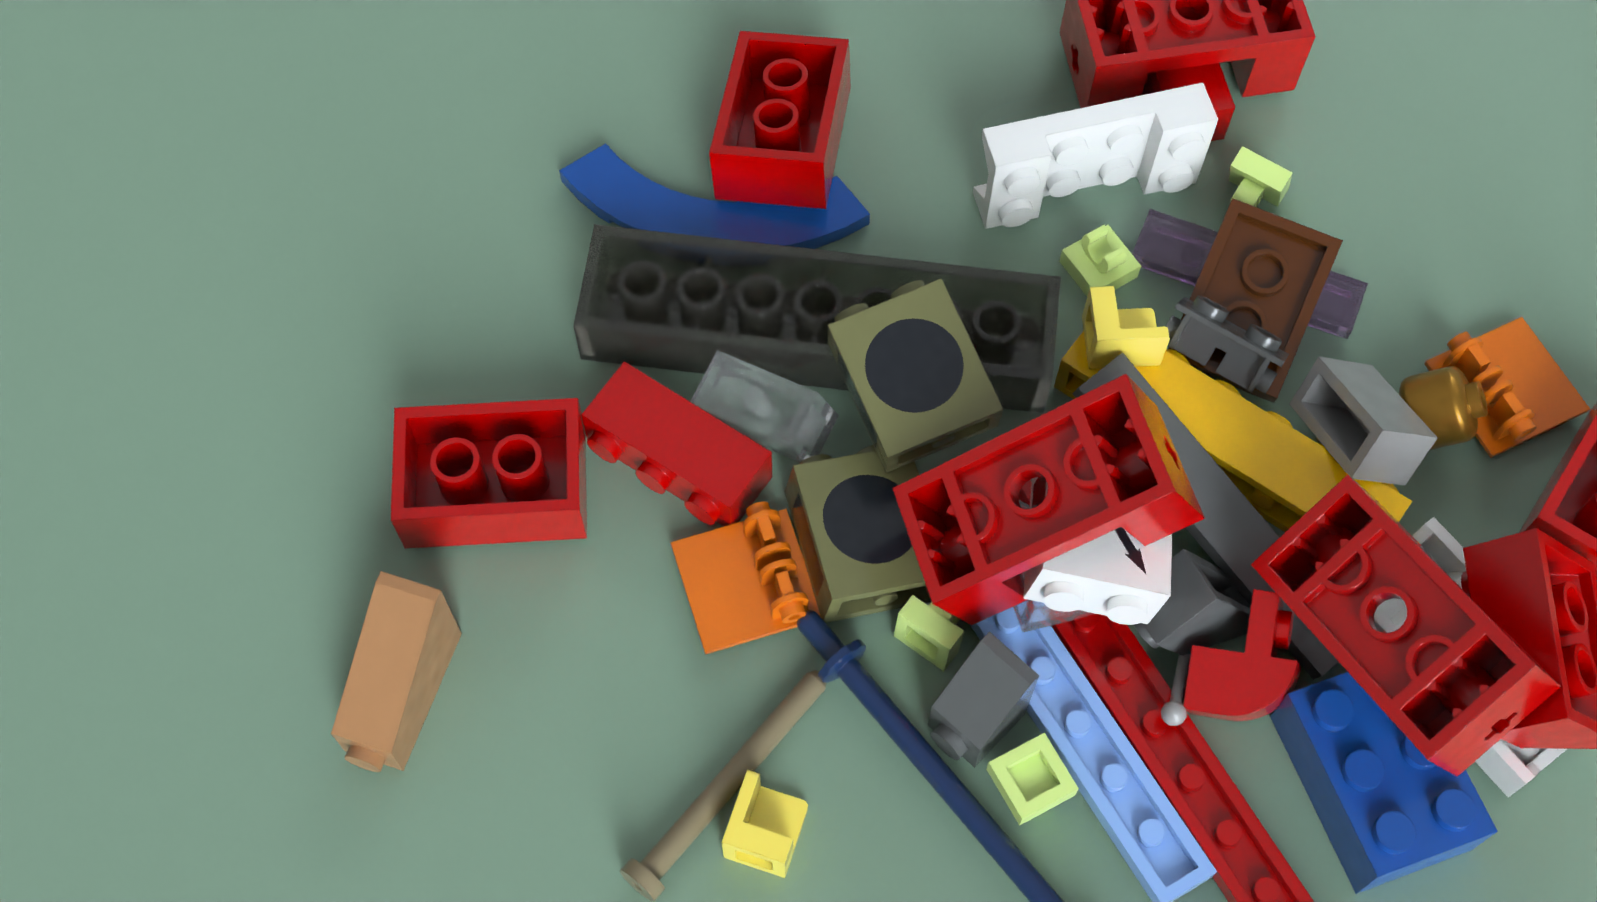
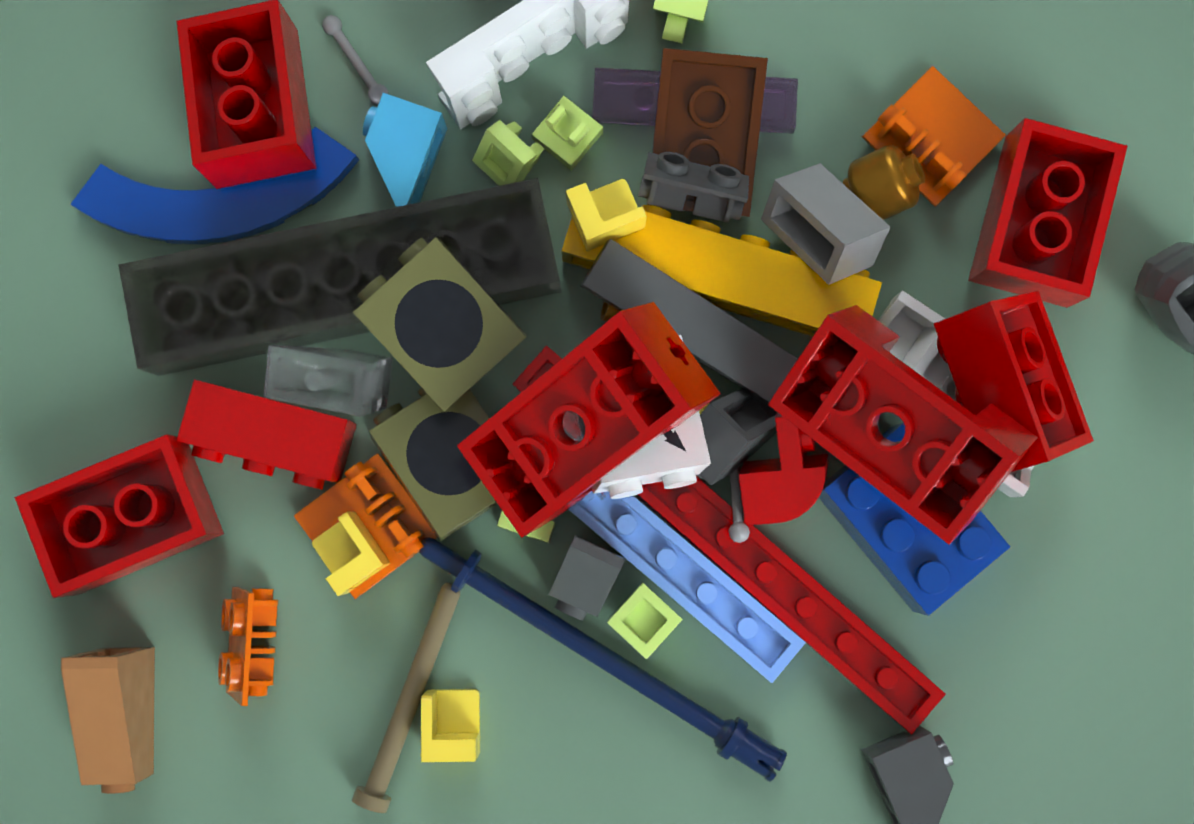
camera: 20 degrees left, 20 degrees up
(582, 631) = (236, 669): none -> orange hinge
(721, 596) = (349, 553): none -> light yellow panel
(911, 168) = (332, 26): none -> light grey hinge
(926, 212) = (404, 145): none -> medium azure slope
(1029, 251) = (505, 155): none -> yellowish green tile

